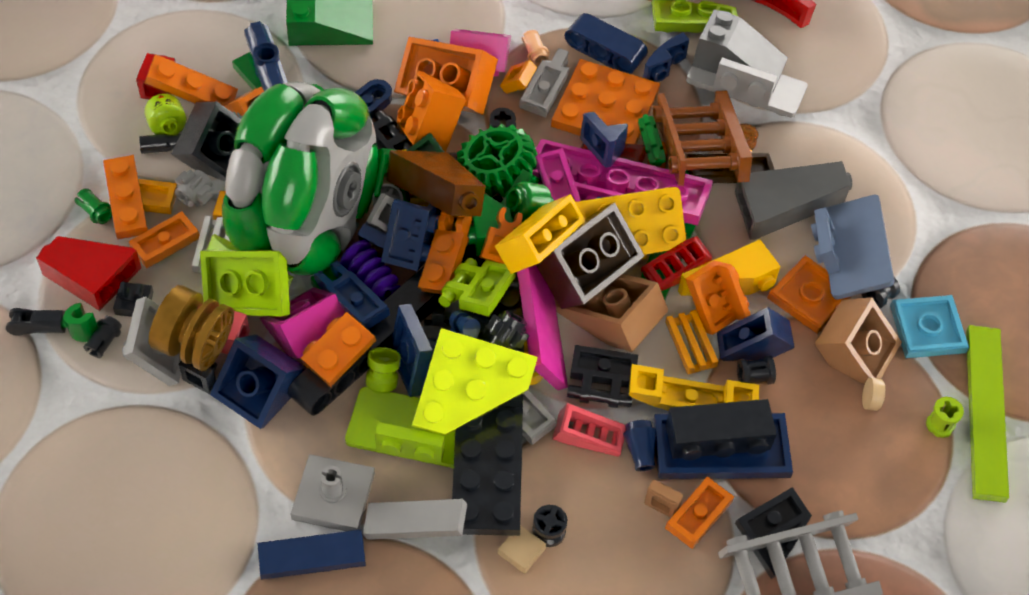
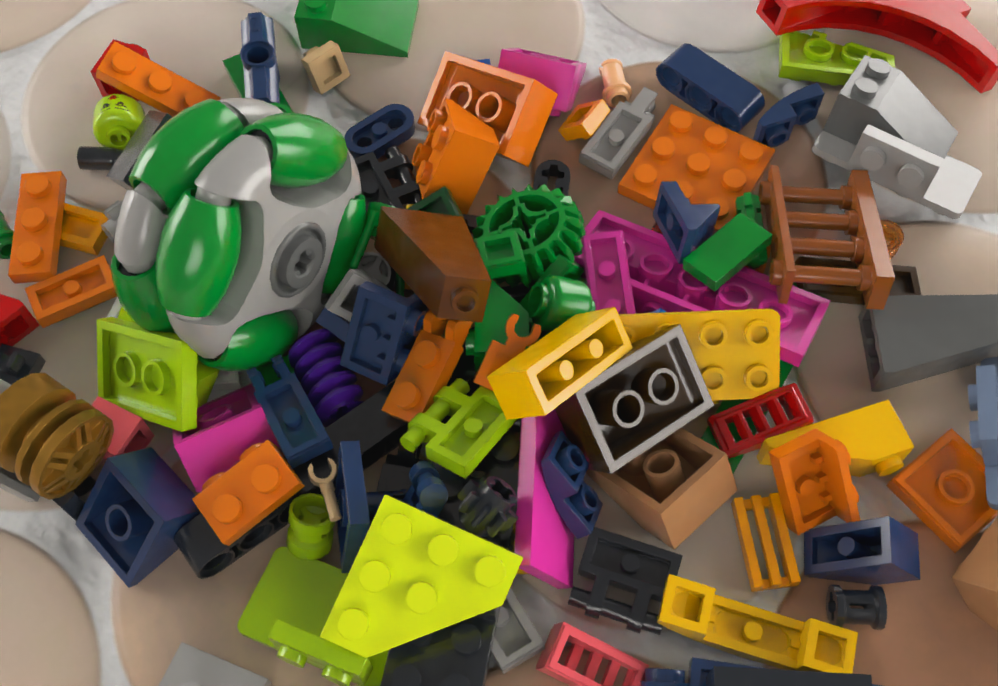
camera: 15 degrees right, 5 degrees up
(314, 57) = (325, 66): none -> tan tile
(390, 339) = (327, 489): none -> tan hand
(485, 170) = (501, 254): none -> green tile
(552, 309) = (564, 475): none -> dark blue slope
(637, 155) = (727, 251): none -> green tile

